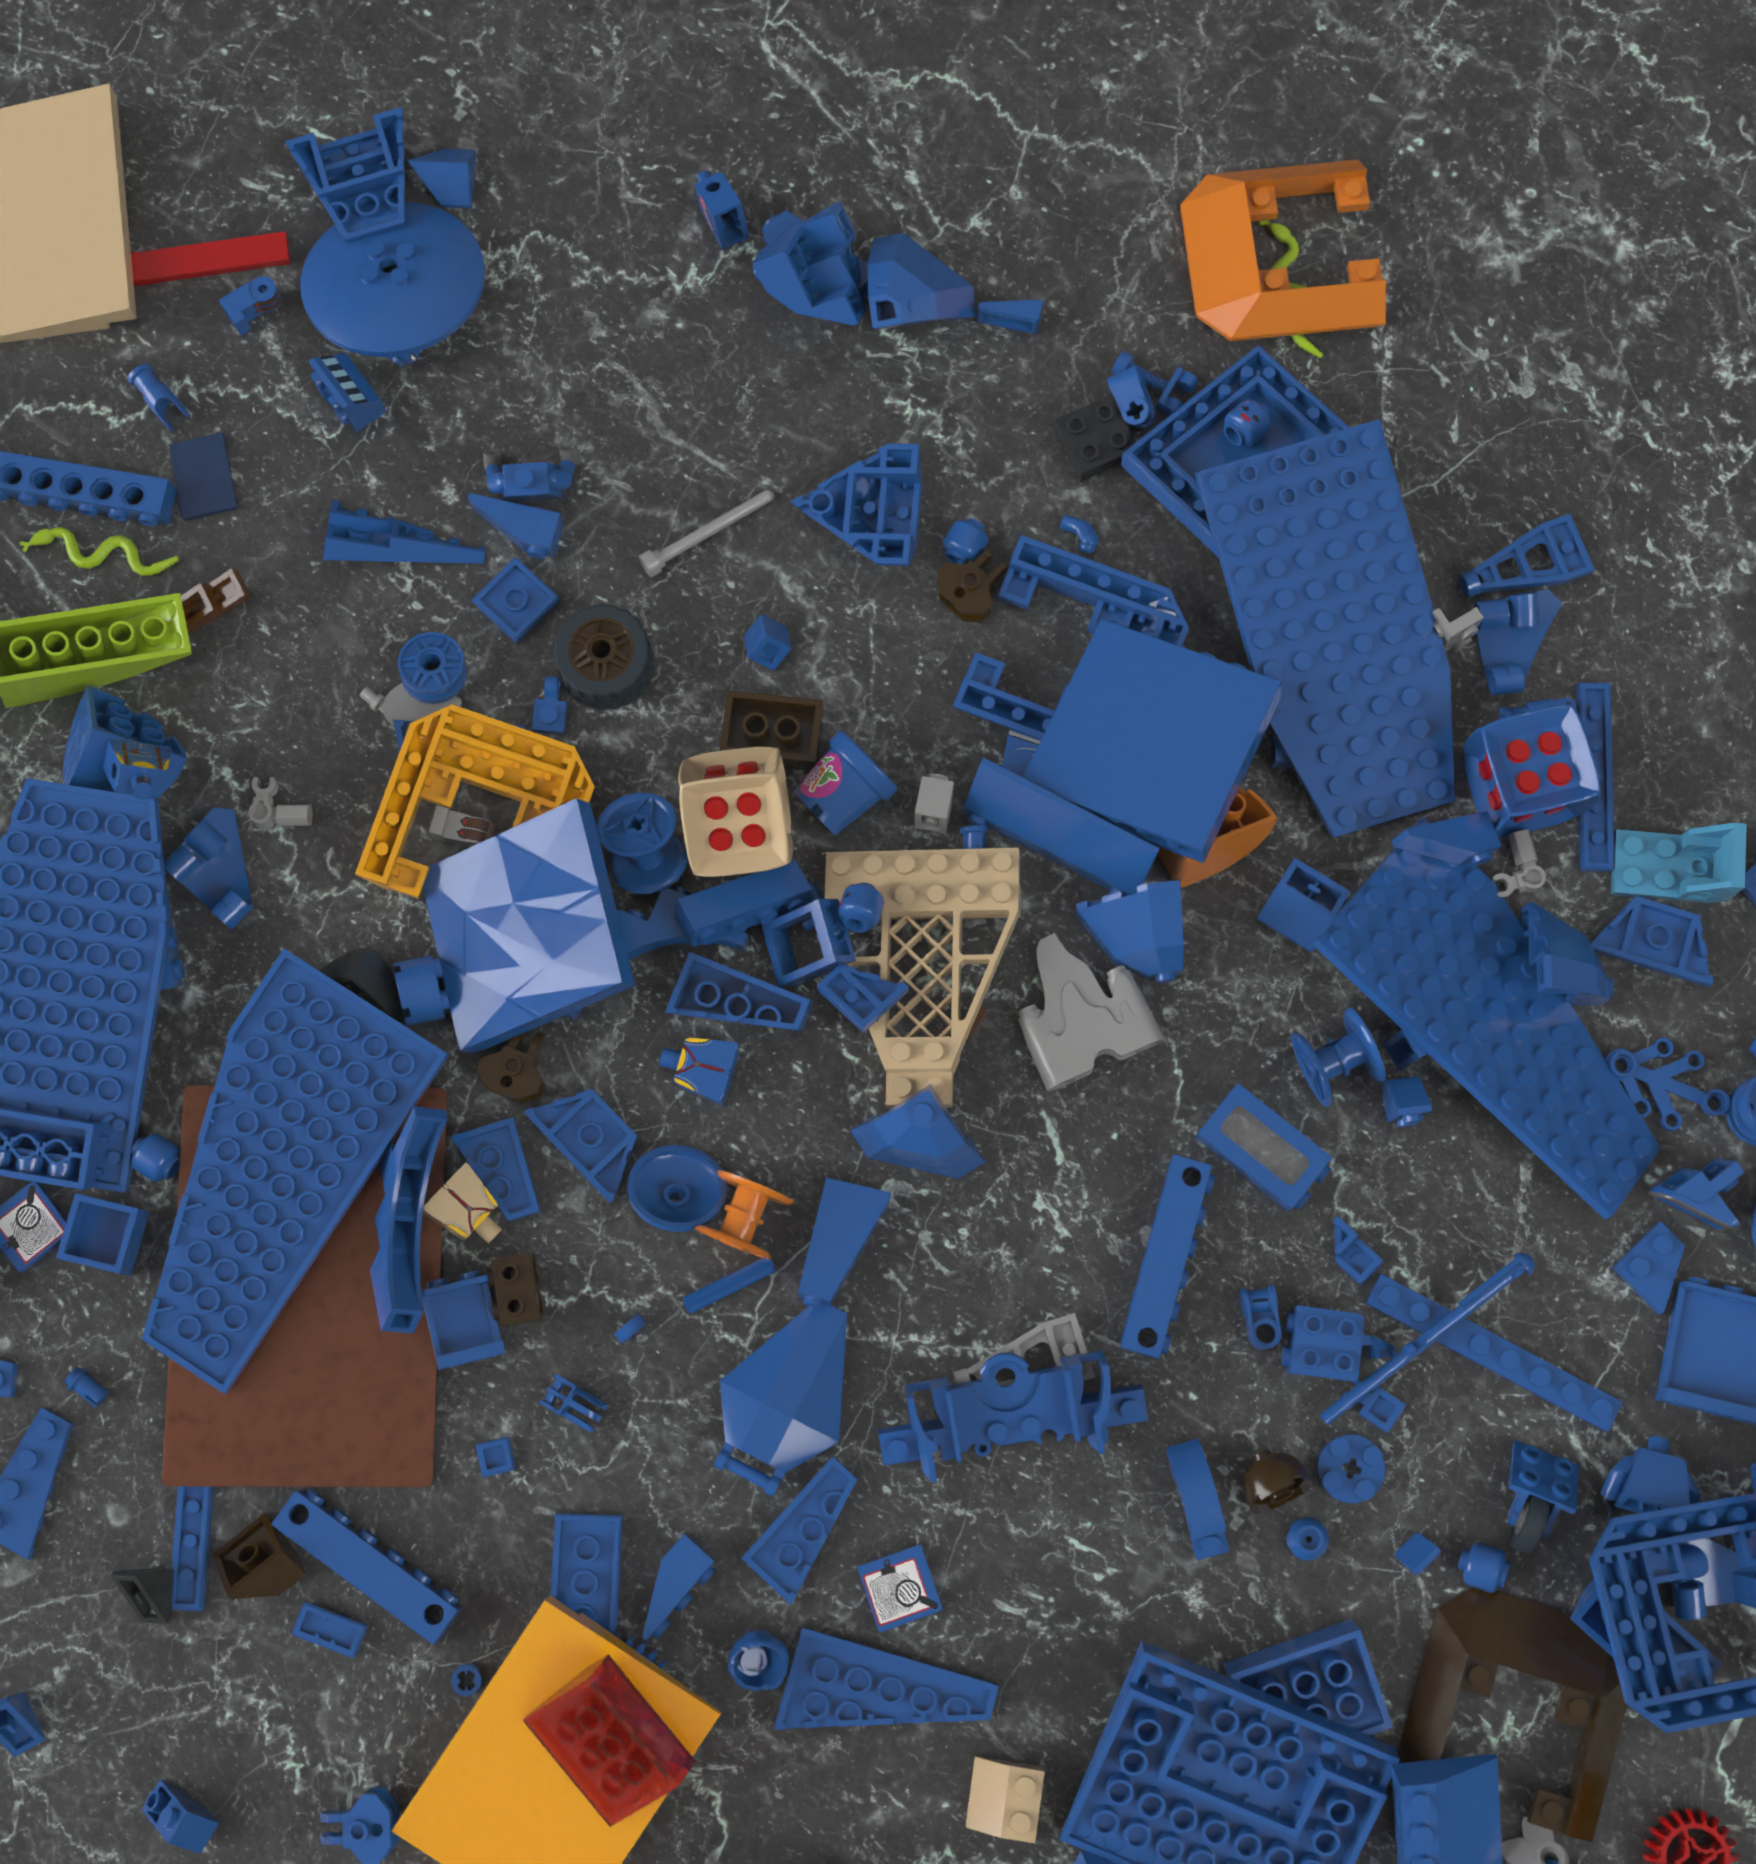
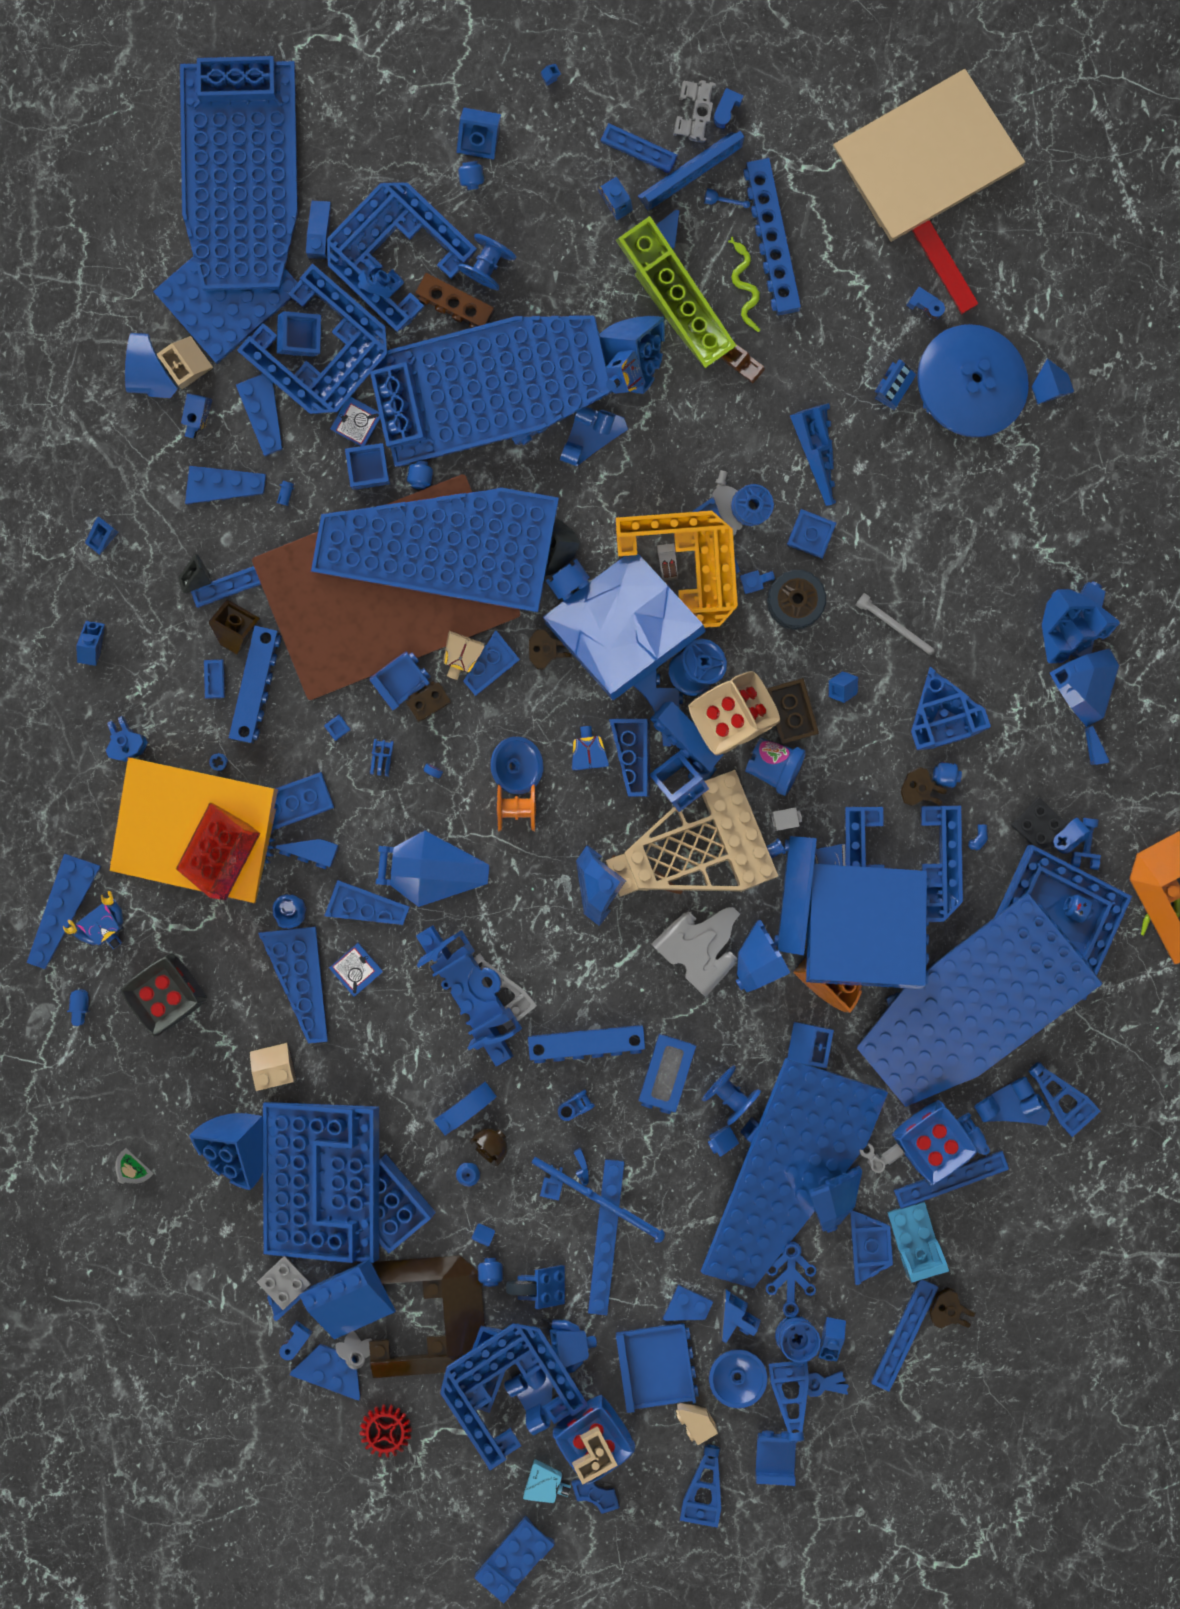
camera: 65 degrees right, 10 degrees up
(156, 394) = (850, 274): blue piece -> none
(203, 476) = (813, 322): dark blue piece -> none
(265, 814) = (632, 447): light grey bar -> none
(358, 176) = (1027, 333): blue wedge -> none
(399, 1220) = (438, 624): blue arch -> none
(528, 527) = (855, 524): blue slope -> none
(530, 480) = (882, 512): blue torso -> none
(589, 1138) = (526, 705): blue wing -> none
(716, 199) = (1093, 551): blue torso -> none
(728, 1285) = (478, 814): blue axle -> none
(840, 1233) = (527, 863): blue slope -> none
(860, 907) = (708, 803): blue head -> none
(860, 995) = (660, 823): blue wing -> none
(1323, 1343) = (573, 1144): blue bracket -> none
(1353, 1254) = (628, 1143): blue slope -> none
(1367, 1458) = (507, 1192): blue plate -> none
(1453, 840) = (879, 1116): blue slope -> none
(1458, 632) = (1001, 1073): light grey bracket -> none

